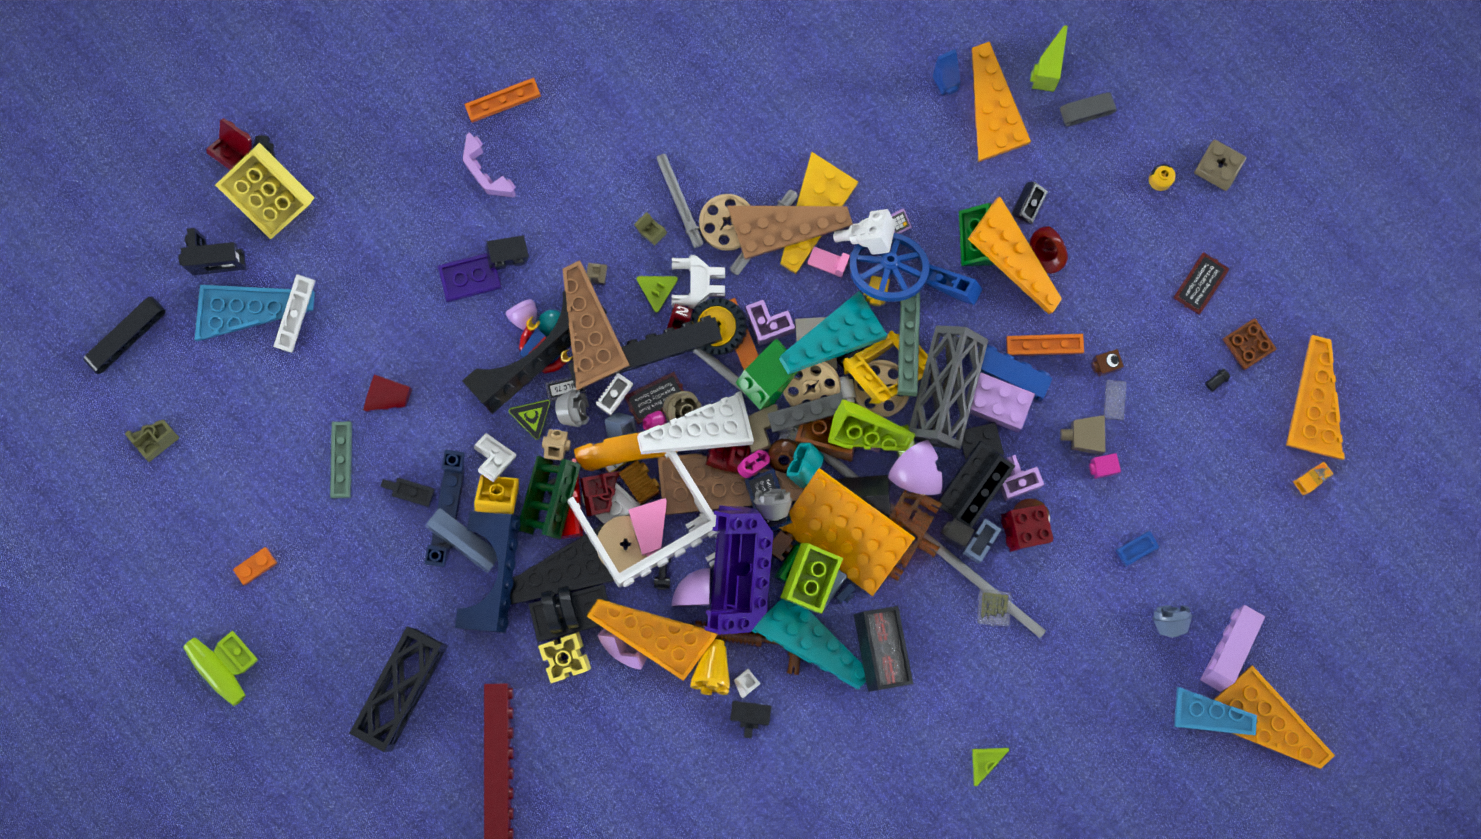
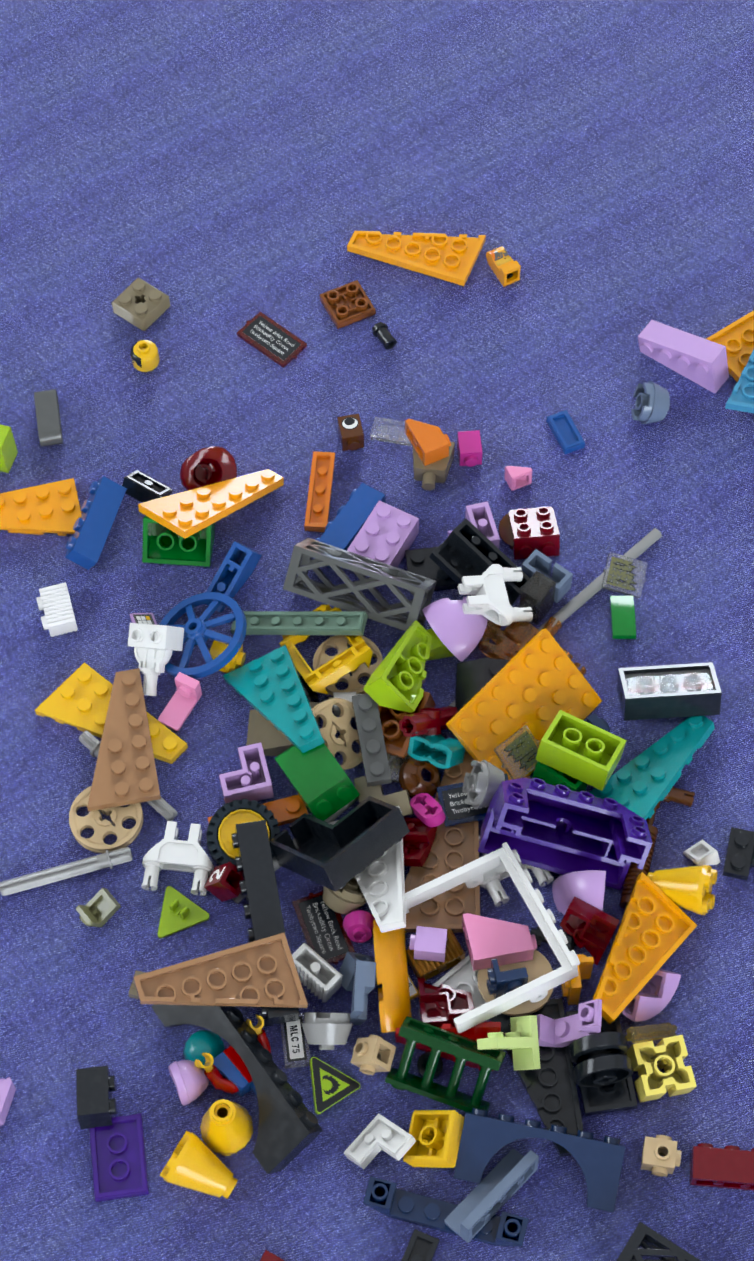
camera: 85 degrees left, 20 degrees down
(461, 332) = (198, 1168): none -> yellow cone
(496, 654) = (651, 1156): none -> tan brick
(500, 351) = (228, 1133): none -> yellow cone
(567, 550) = (522, 1040): none -> yellowish green bracket
(584, 567) = (567, 1029): none -> lavender slope
(588, 647) = (650, 1032): none -> clear yellow axle
(599, 429) = (363, 984): none -> sand blue slope
(608, 537) = (505, 981): none -> dark blue bracket
(636, 588) = (572, 988): none -> light orange bracket
(639, 475) = (429, 944): none -> lavender brick
(669, 596) = (589, 927): none -> dark red slope
(702, 401) = (342, 850): none -> black piece
(809, 530) = (518, 753): none -> piece
(826, 456) = (427, 722): none -> dark red piece
(902, 151) = (57, 608): none -> white brick
(942, 495) = (492, 597): none -> white connector
(954, 608) = (622, 617): none -> green slope
(986, 166) = (95, 523): none -> blue brick
(1081, 510) = (518, 476): none -> bright pink slope
(1097, 428) = (427, 441): none -> orange slope

